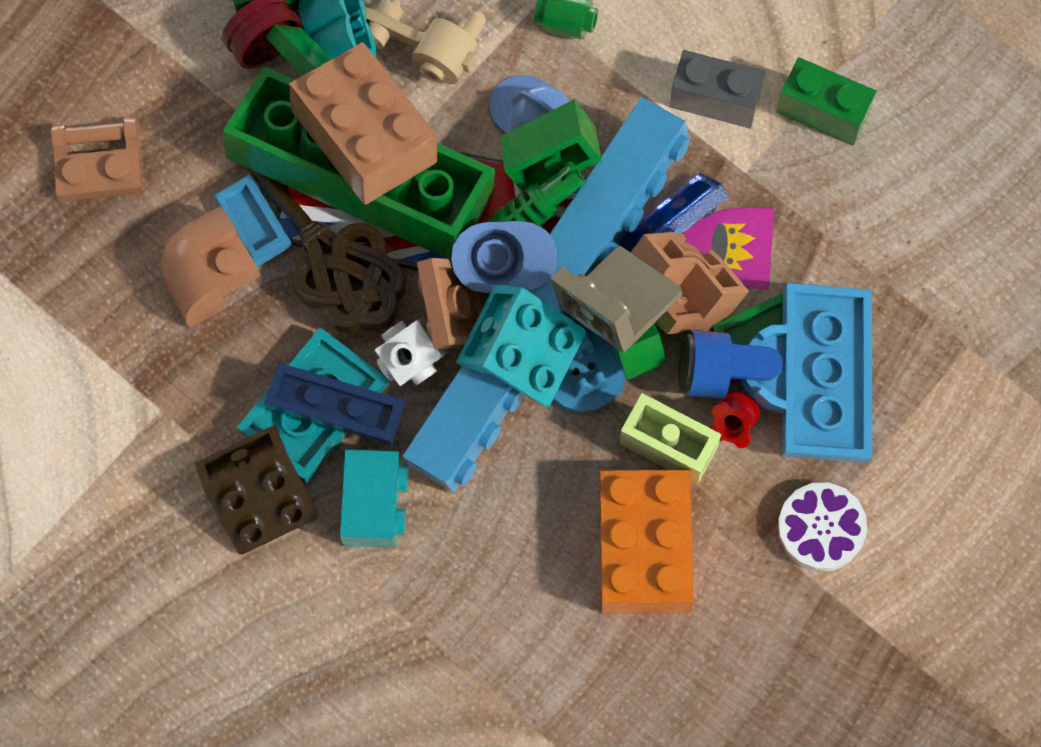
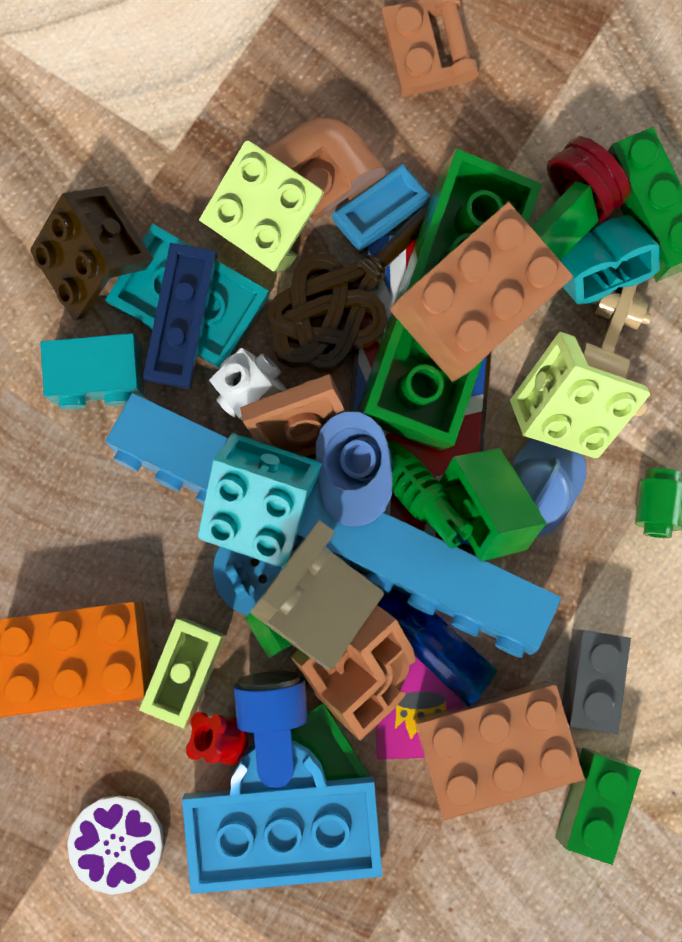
camera: 80 degrees right, 10 degrees up
(243, 314) = (262, 206): none -> yellowish green bracket
(465, 72) = (574, 403): none -> yellowish green bracket
(769, 178) = (498, 749): none -> nougat brick

